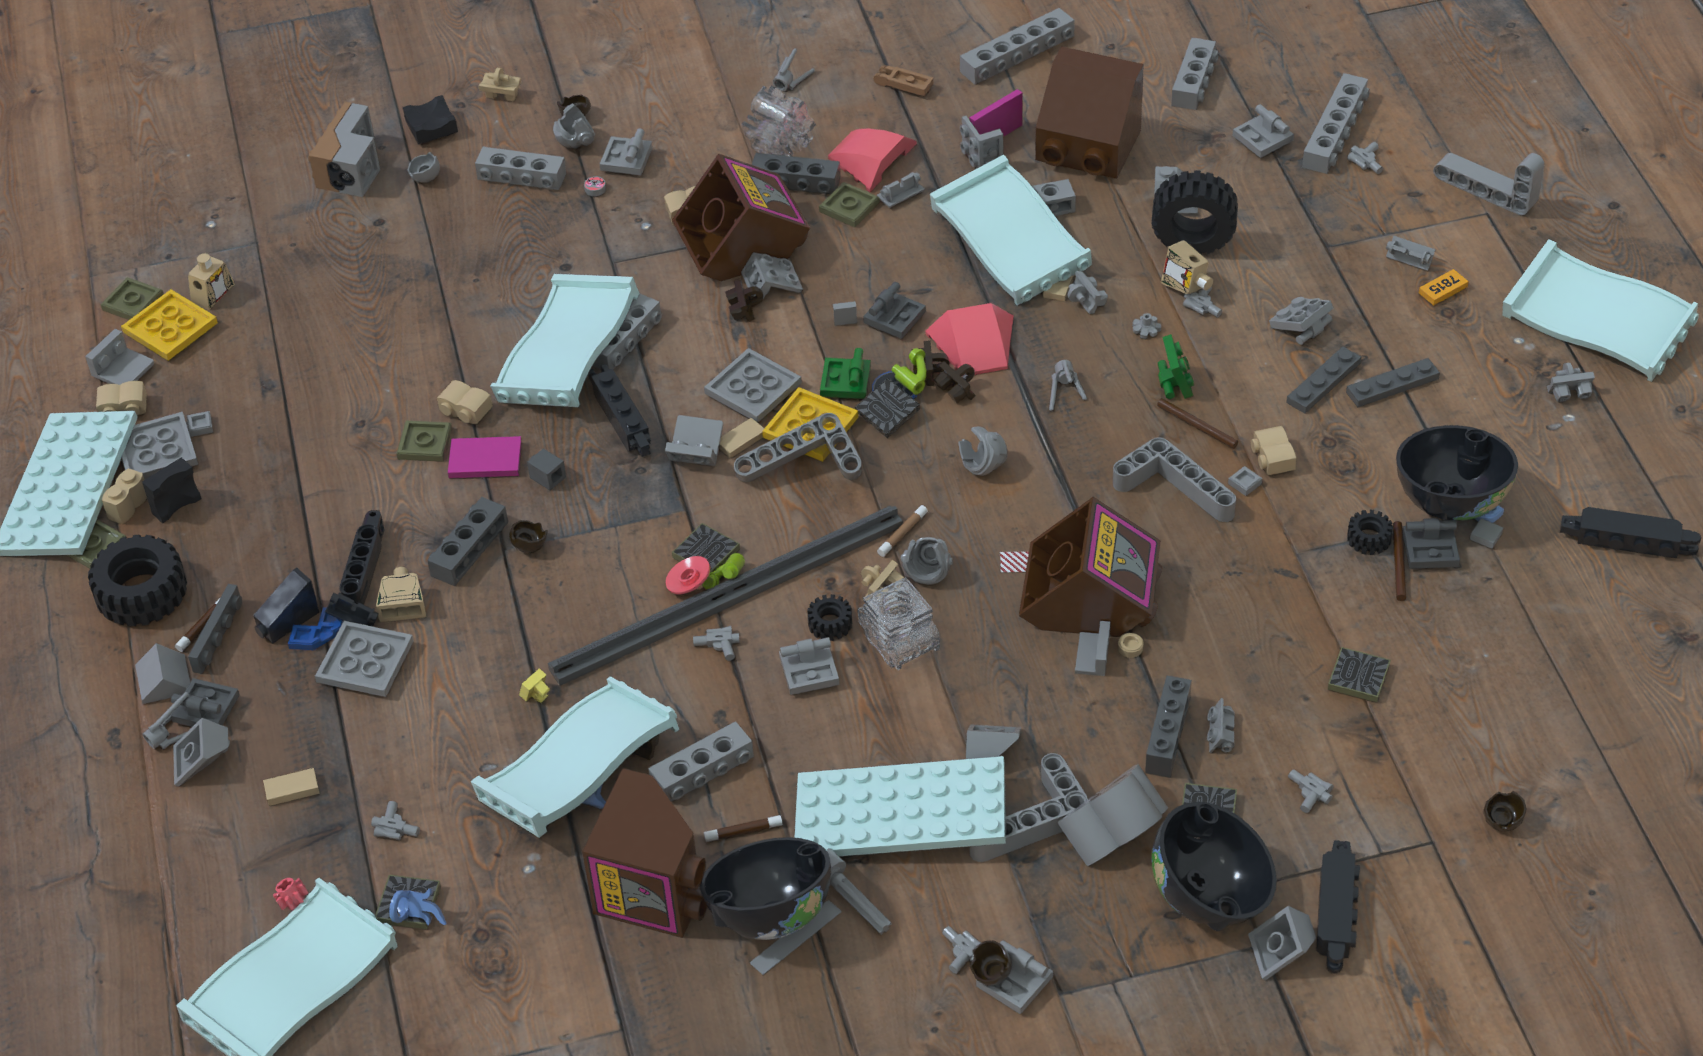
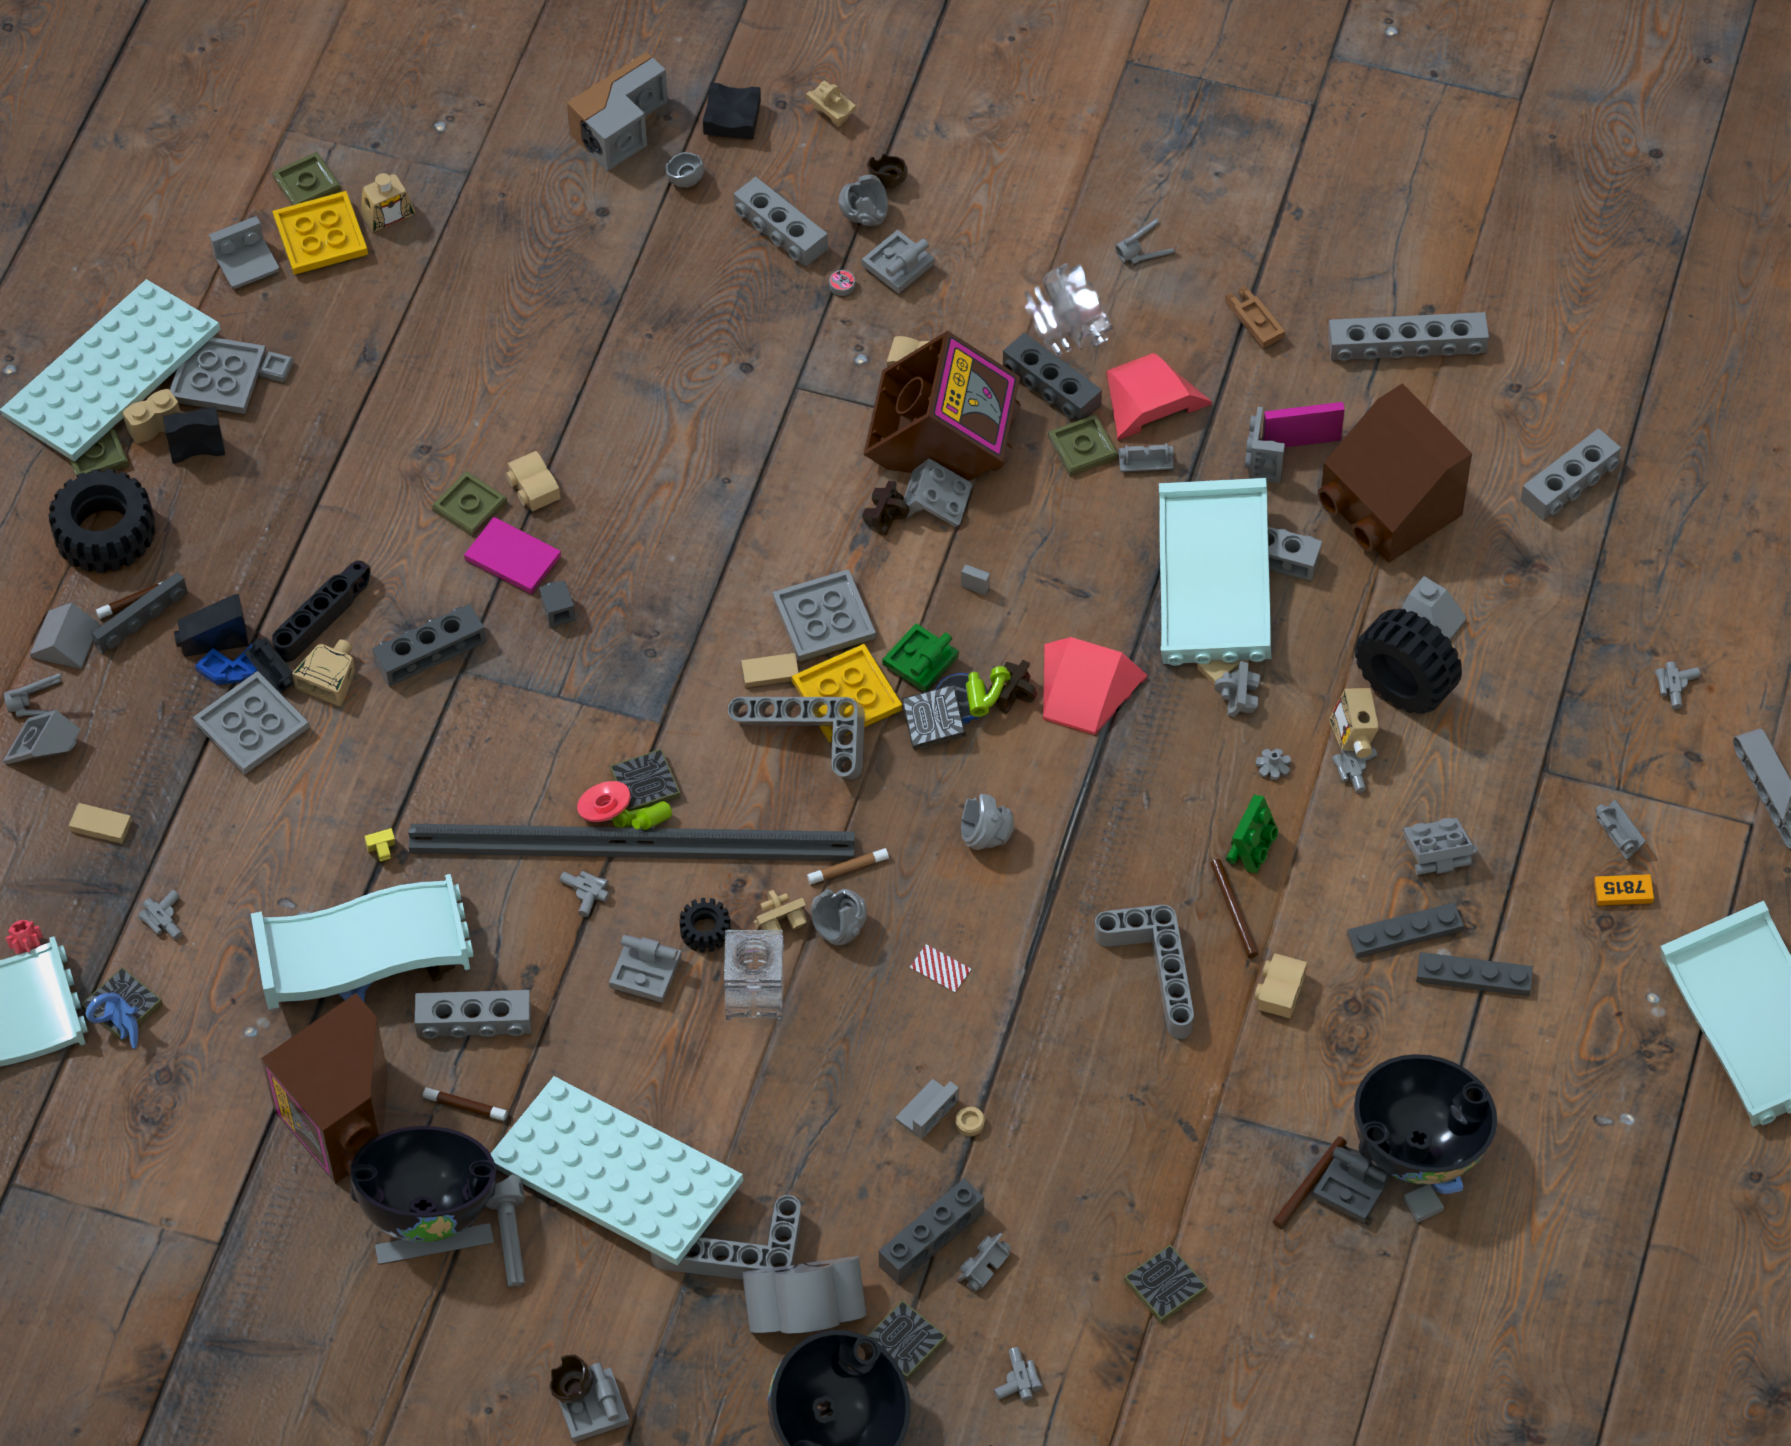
camera: 30 degrees right, 10 degrees up
(123, 397) = (219, 300): tan brick -> none
(204, 701) = (79, 691): dark grey plate -> none
(527, 536) = (486, 671): dark brown hair -> none
(565, 340) = (673, 462): light aqua panel -> none
(620, 410) = (672, 574): black hinge -> none
(639, 320) = (730, 480): light grey brick -> none
(695, 440) = (718, 651): light grey bracket -> none
(894, 312) = (1026, 606): dark grey plate -> none
(961, 386) = (1029, 721): dark brown hips -> none
(962, 949) = (572, 1345): light grey piece -> none
(989, 741) = (751, 1146): light grey slope -> none
(1065, 374) = (1140, 776): light grey plant -> none
(1090, 572) = (978, 1027): reddish brown slope -> none
(1245, 481) = (1229, 1002): light grey tile -> none
(1264, 132) = (1584, 592): light grey plate -> none
(1336, 123) = (1660, 622): light grey brick -> none
(1368, 542) = (1306, 1119): black tyre -> none
(1571, 379) = (1668, 1087): light grey hips -> none
(1631, 532) = (1567, 1288): black hinge -> none

